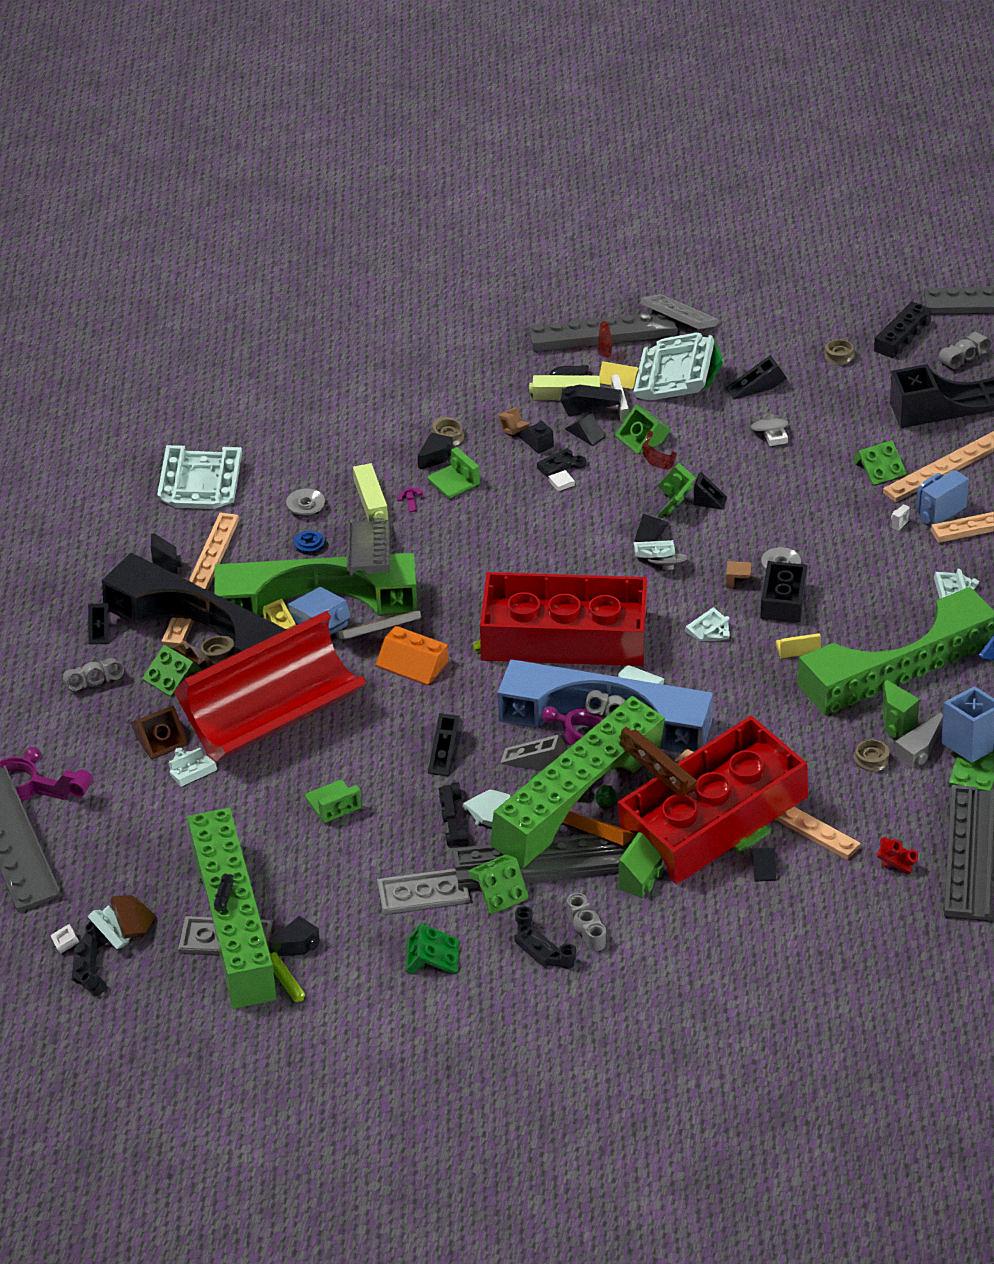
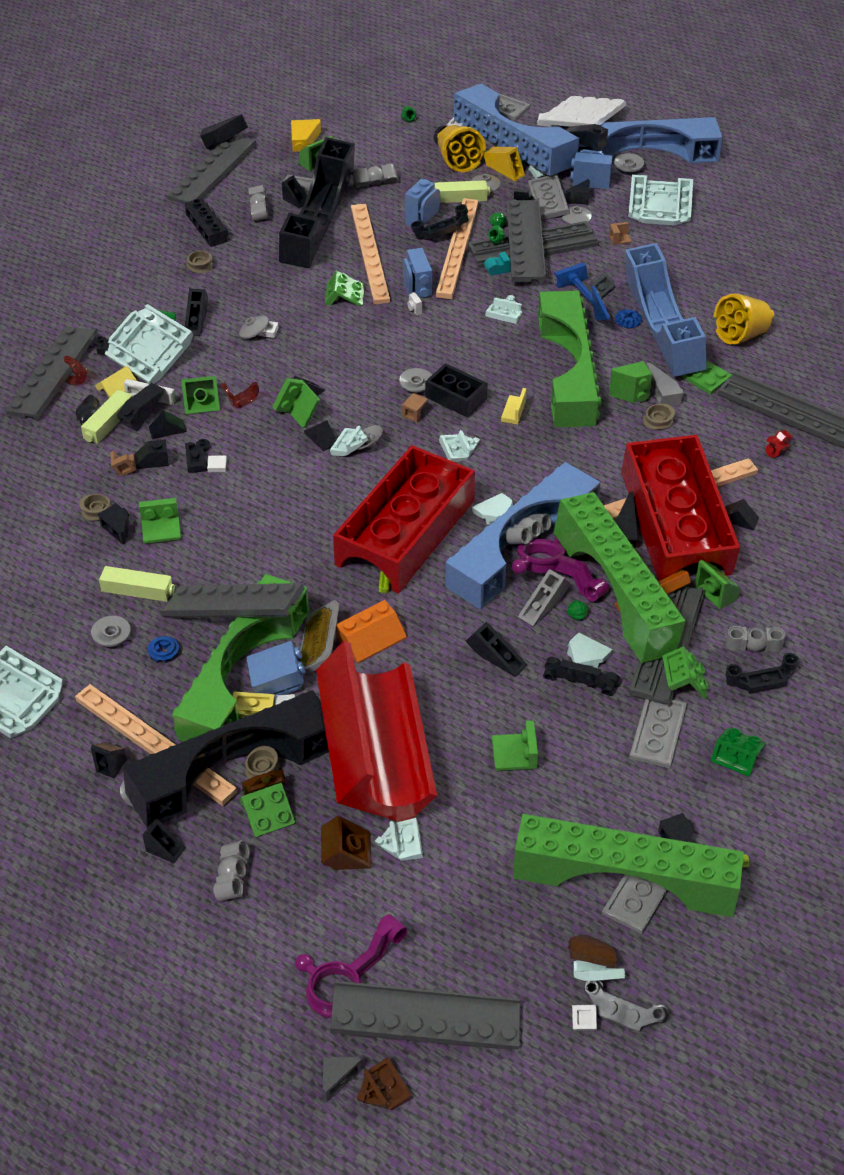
camera: 65 degrees left, 5 degrees up
(223, 892) = (642, 852): black axle -> none
(409, 494) = (154, 560): magenta piece -> none
(656, 761) = (649, 513): reddish brown fence -> none
(679, 311) = (74, 320): light grey tile -> none

